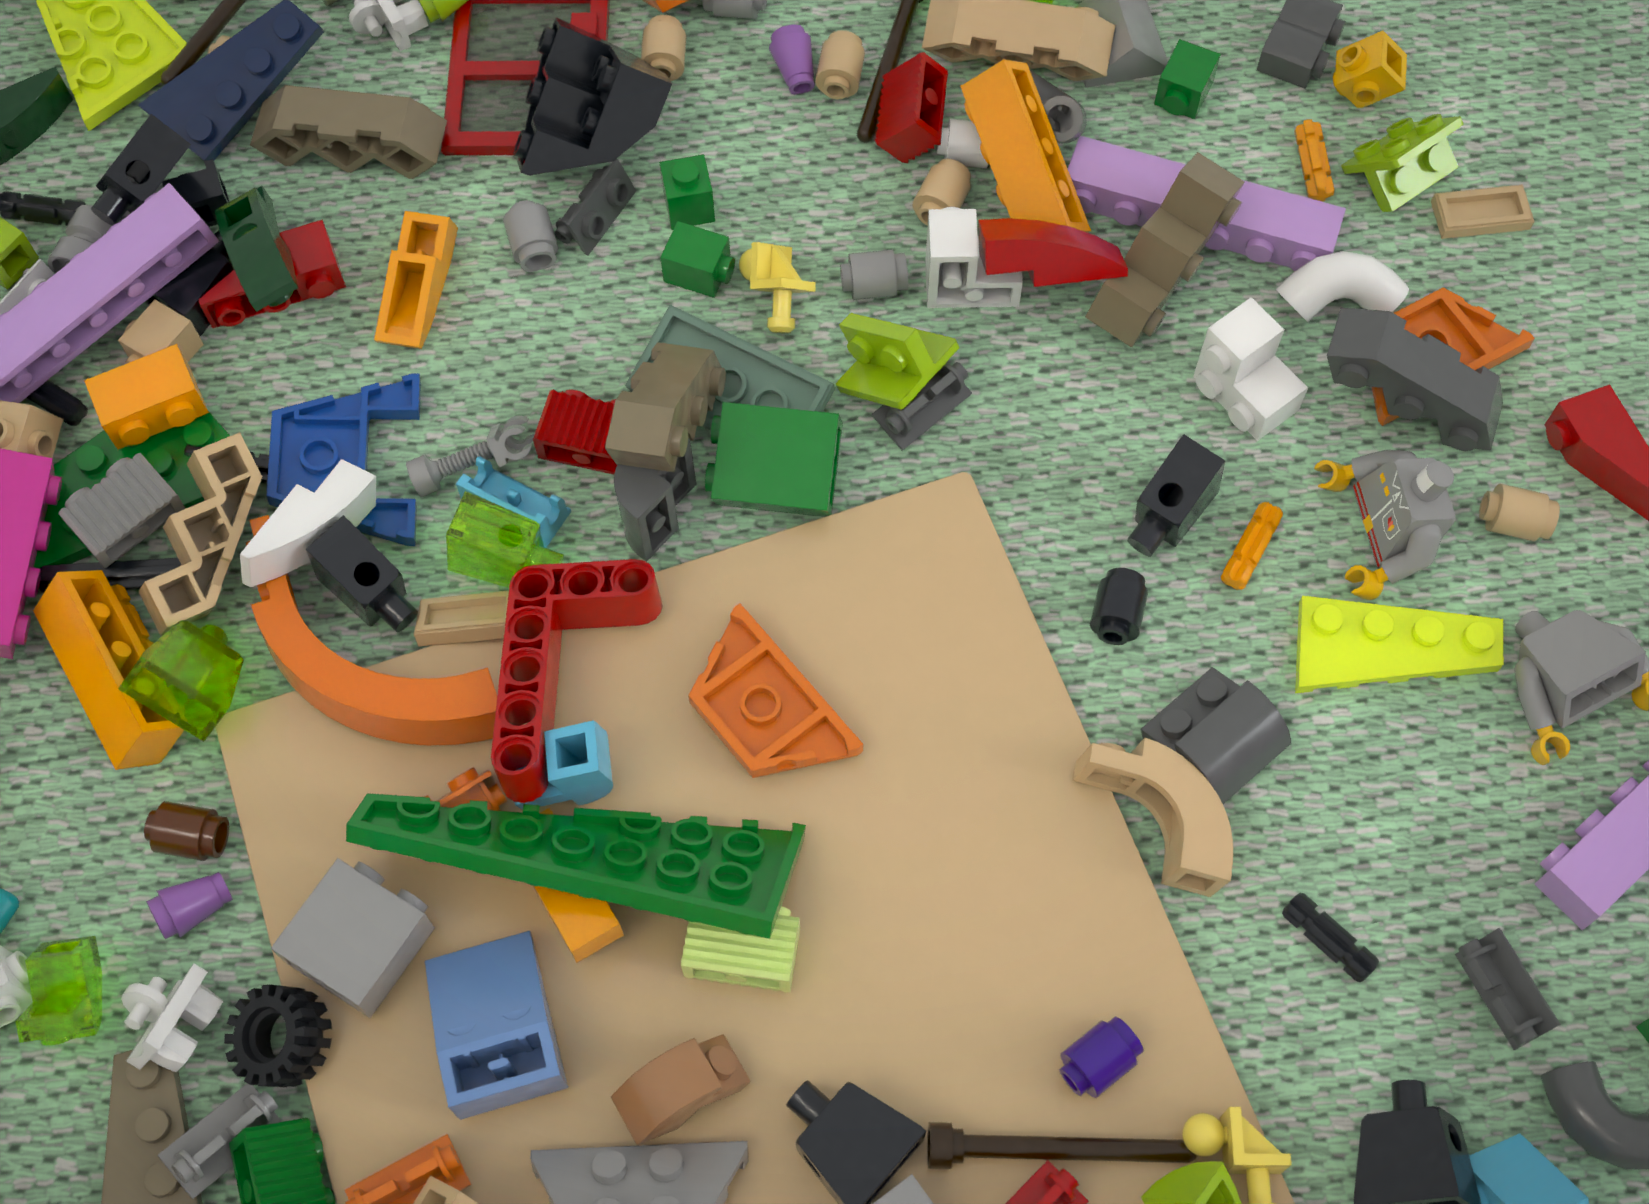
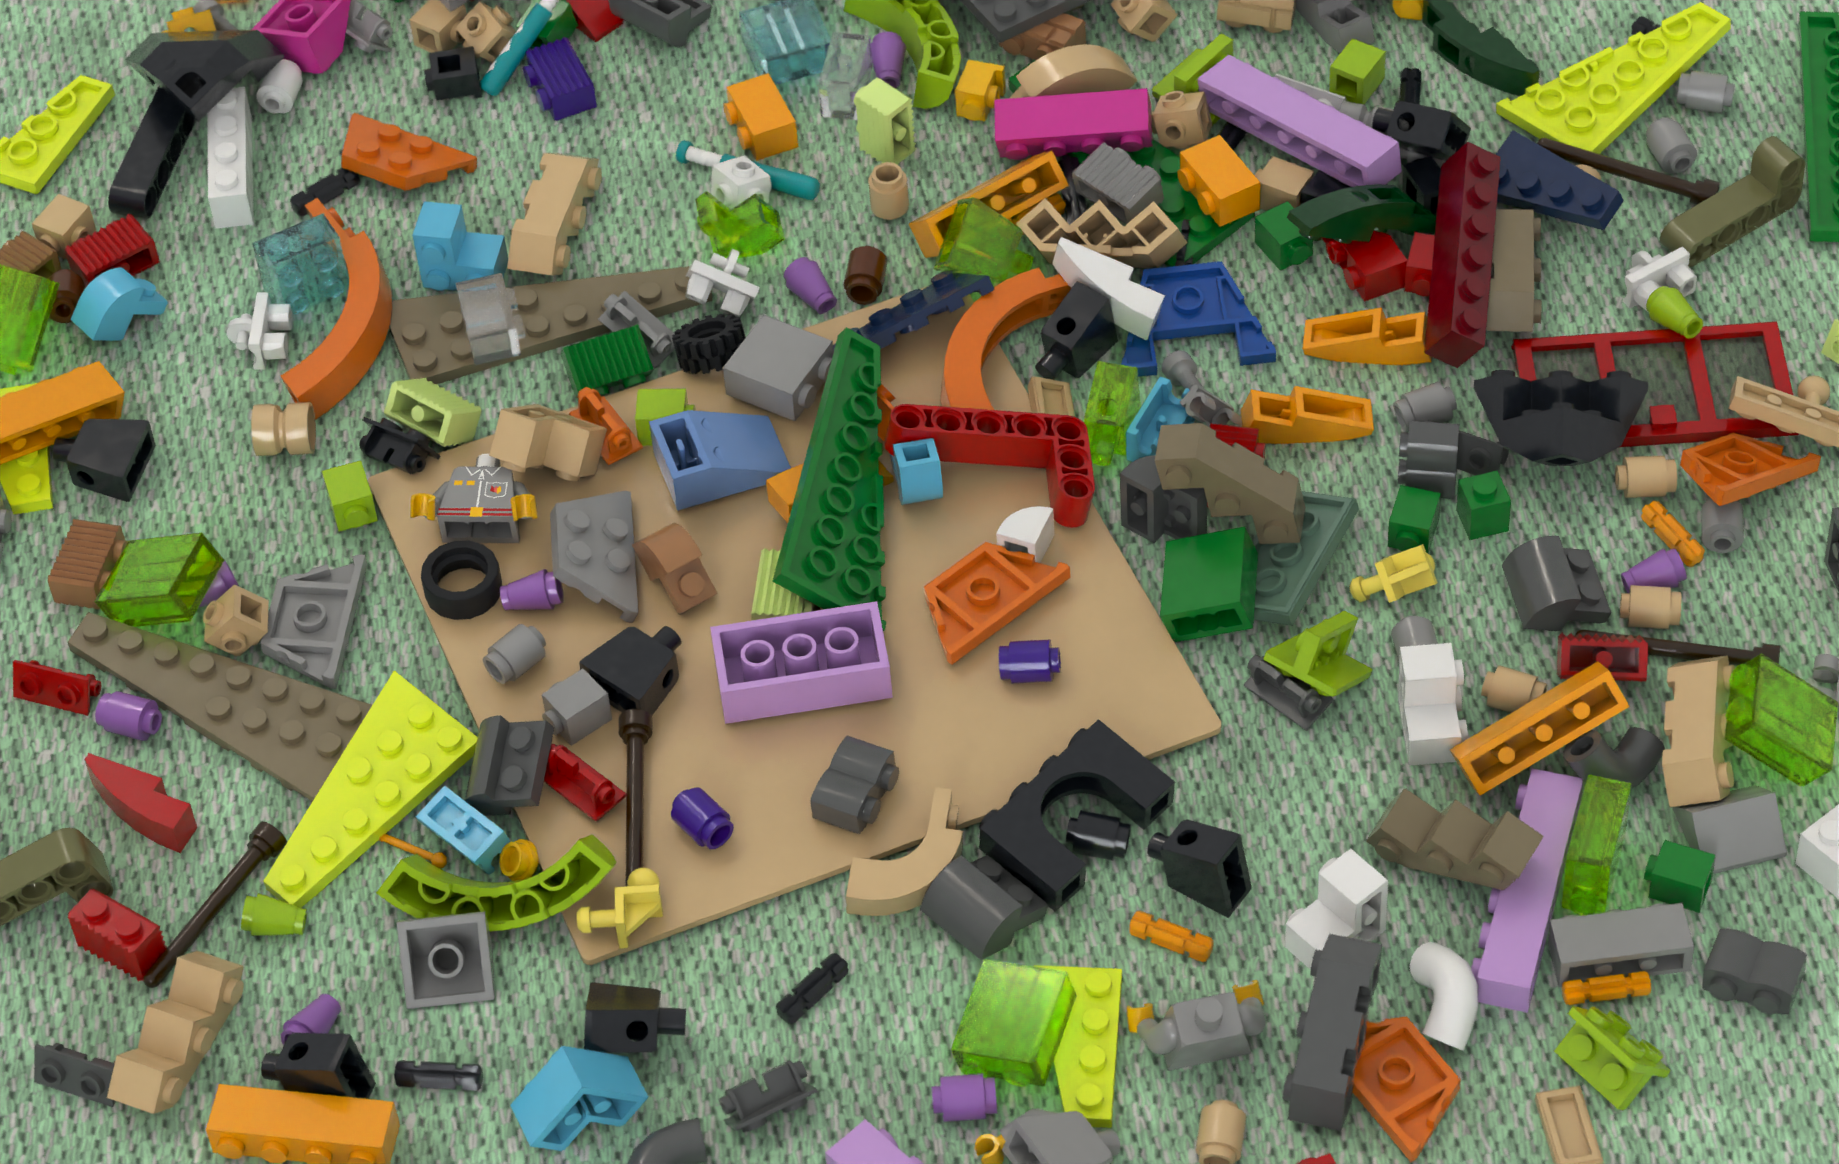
camera: 90 degrees right, 15 degrees down
(51, 791) = (888, 191): none -> tan brick
(239, 347) = (1281, 238): none -> green brick
(288, 765) = (915, 306): none -> dark blue wing
(318, 199) = (1419, 264): none -> red brick
(336, 155) = (1462, 255): none -> dark red brick
(408, 1100) = (657, 404): none -> lime brick
(524, 353) = (1307, 416): none -> light orange slope
(628, 224) = (1430, 456): none -> dark grey brick
(682, 647) = (1028, 531): none -> white brick
(736, 41) = (1672, 533): none -> light orange axle
(804, 145) = (1554, 585): none -> dark grey brick
(870, 922) = (801, 662): none -> lavender brick
(875, 659) = (1029, 661): none -> dark purple brick
(1047, 251) = (1430, 742): red slope -> none
(1054, 867) = (854, 784): none -> dark grey brick
(1122, 684) = (1092, 764): none -> black arch
(1171, 121) = (1596, 845): none -> clear neon green brick
(1270, 131) = (1621, 943): none -> light grey brick
(1370, 70) = (1715, 1036): yellow brick -> none
(1399, 705) = (1014, 1022): none -> clear neon green brick
(1488, 766) = (964, 1097): none -> medium lavender brick

